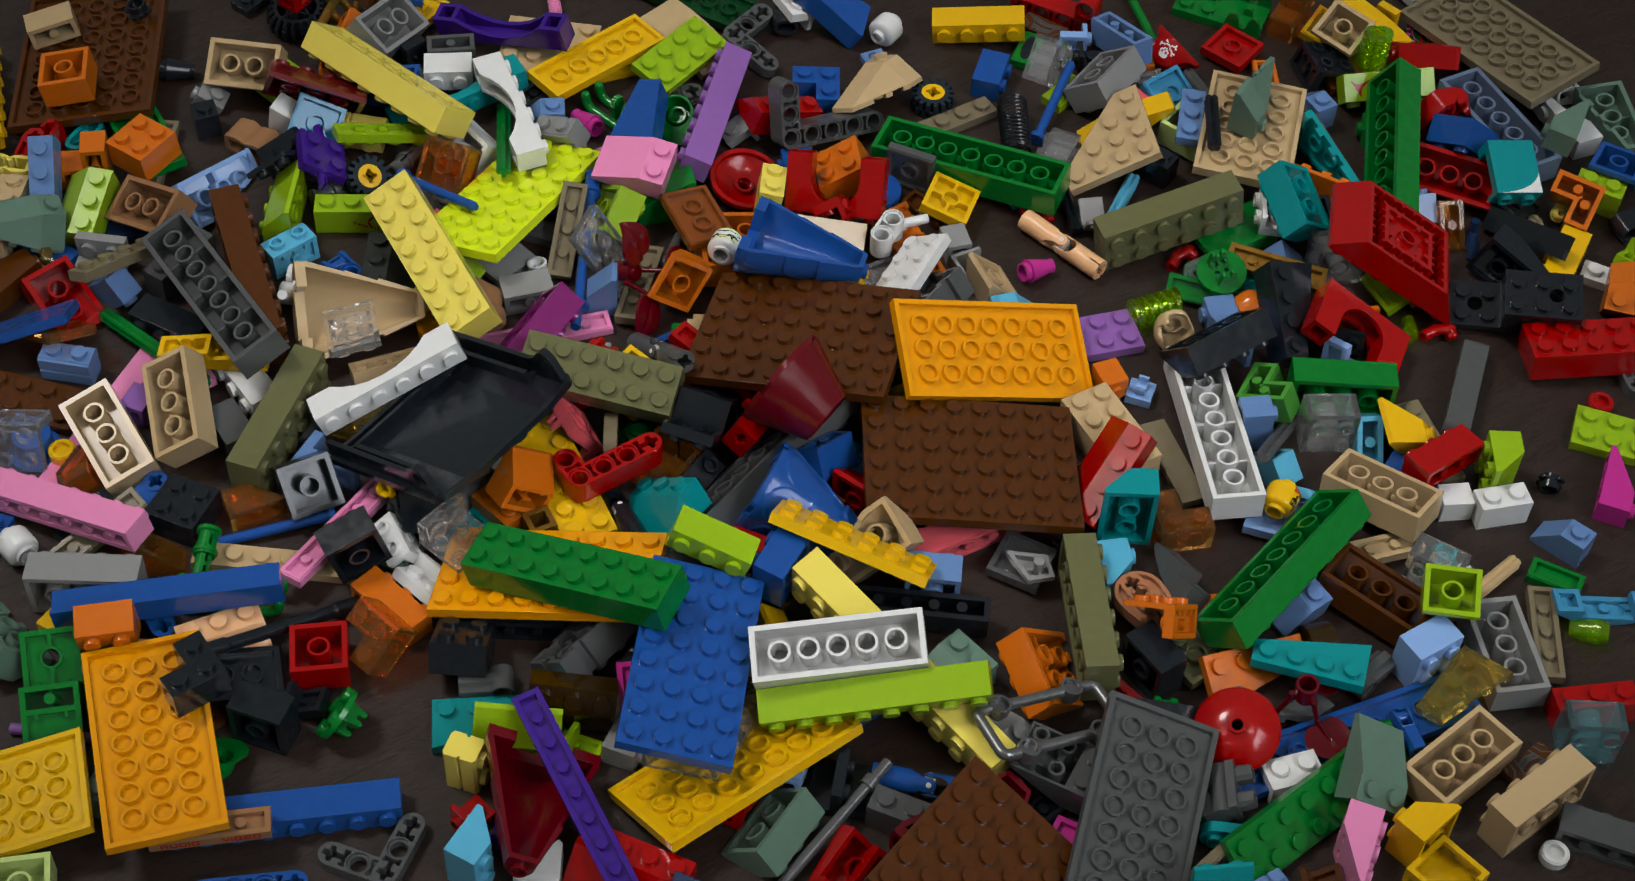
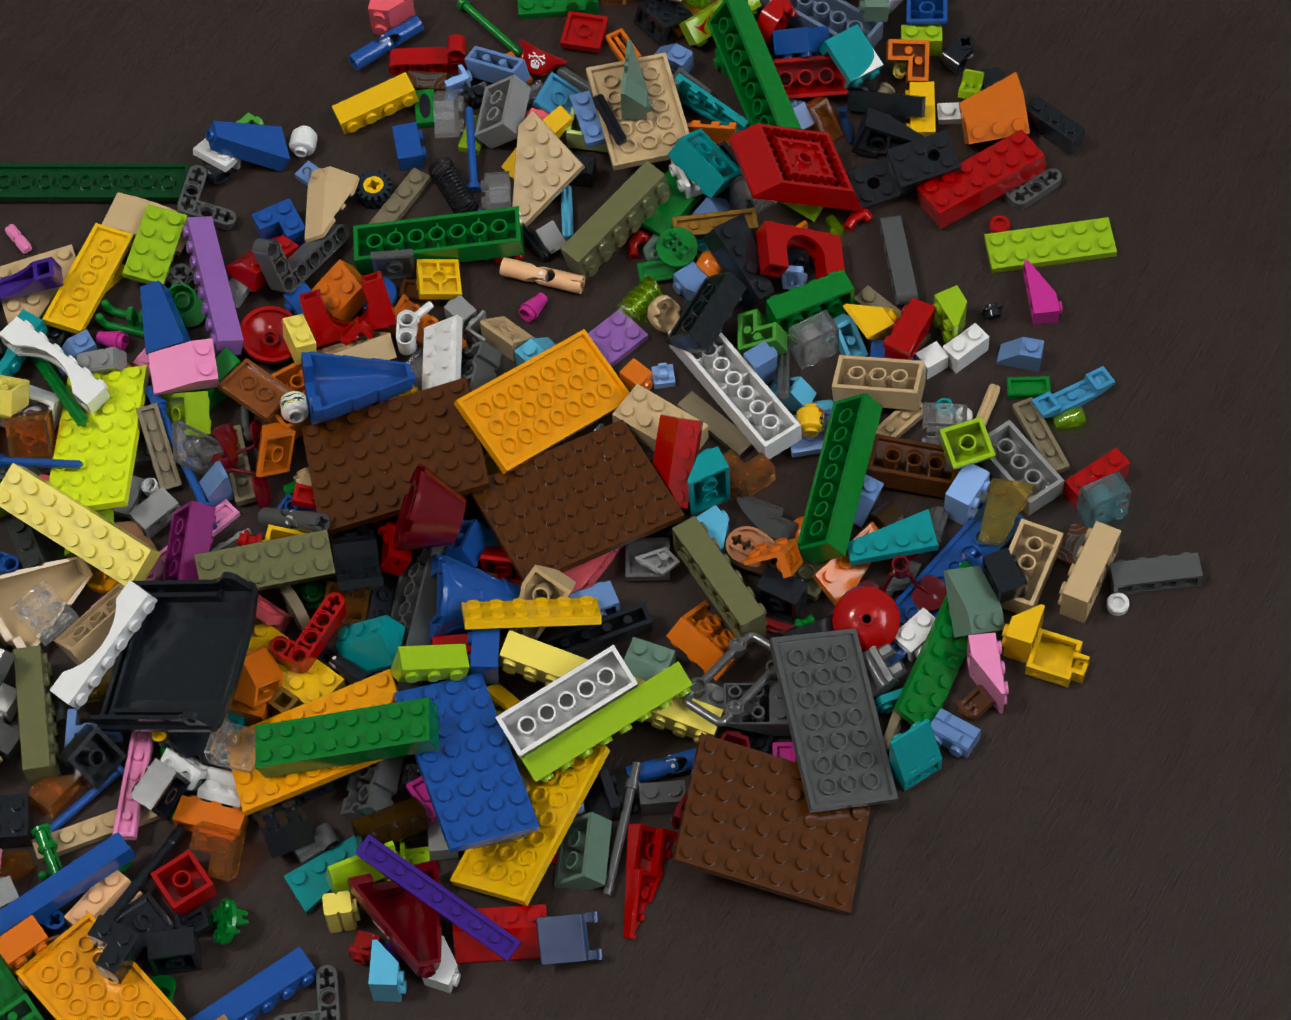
camera: 20 degrees left, 10 degrees up
(1428, 753) = (1004, 575): none -> black brick

